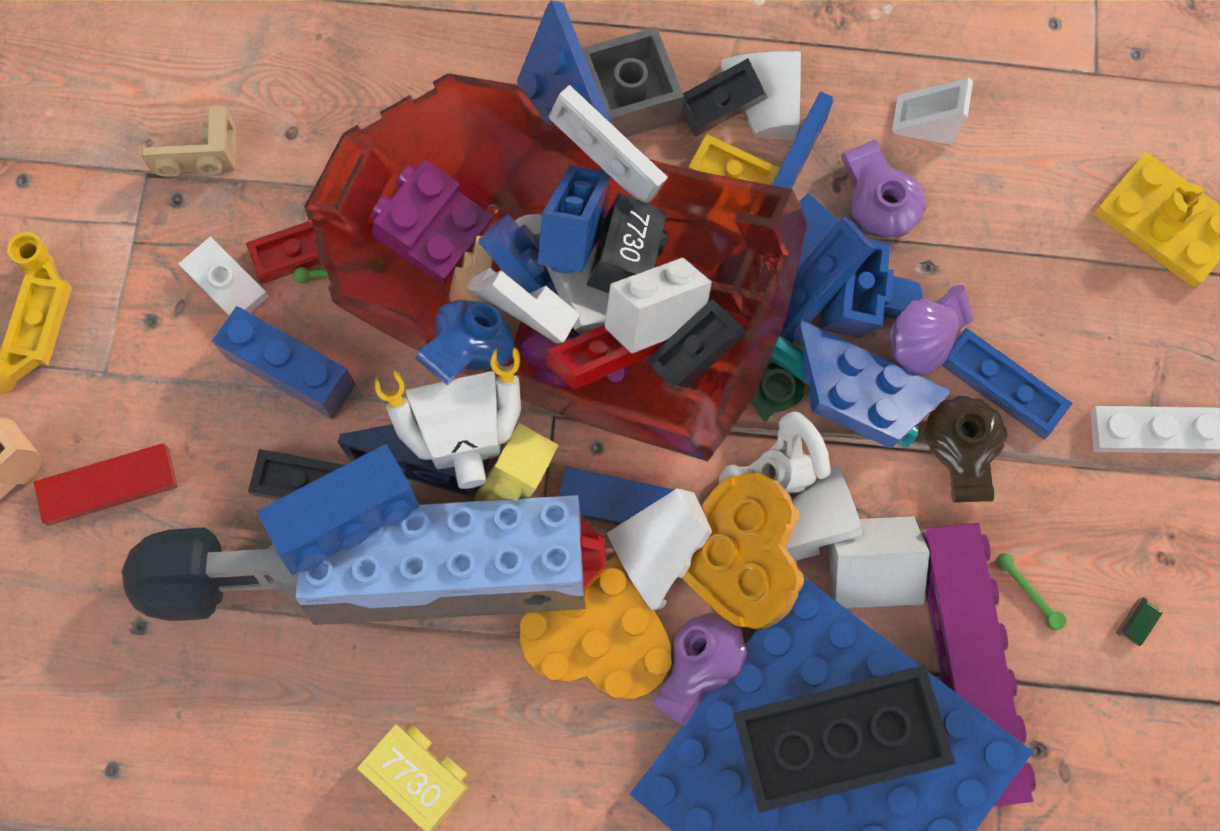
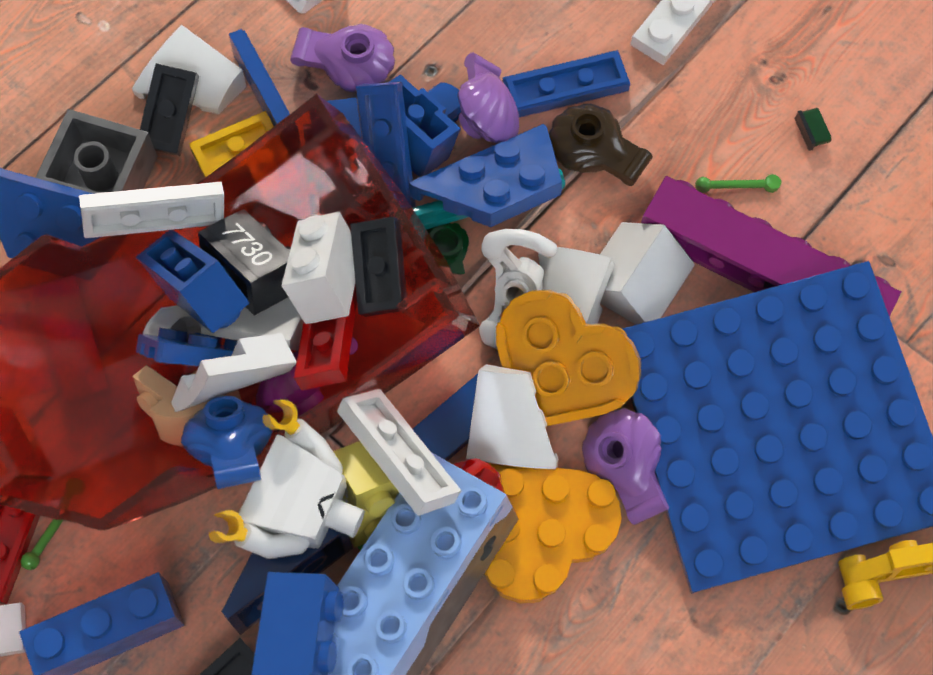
camera: 55 degrees left, 5 degrees down
(429, 221) = (84, 407): magenta plate -> none
(553, 473) = (399, 451): none -> white plate
(843, 738) = (772, 386): black brick -> none

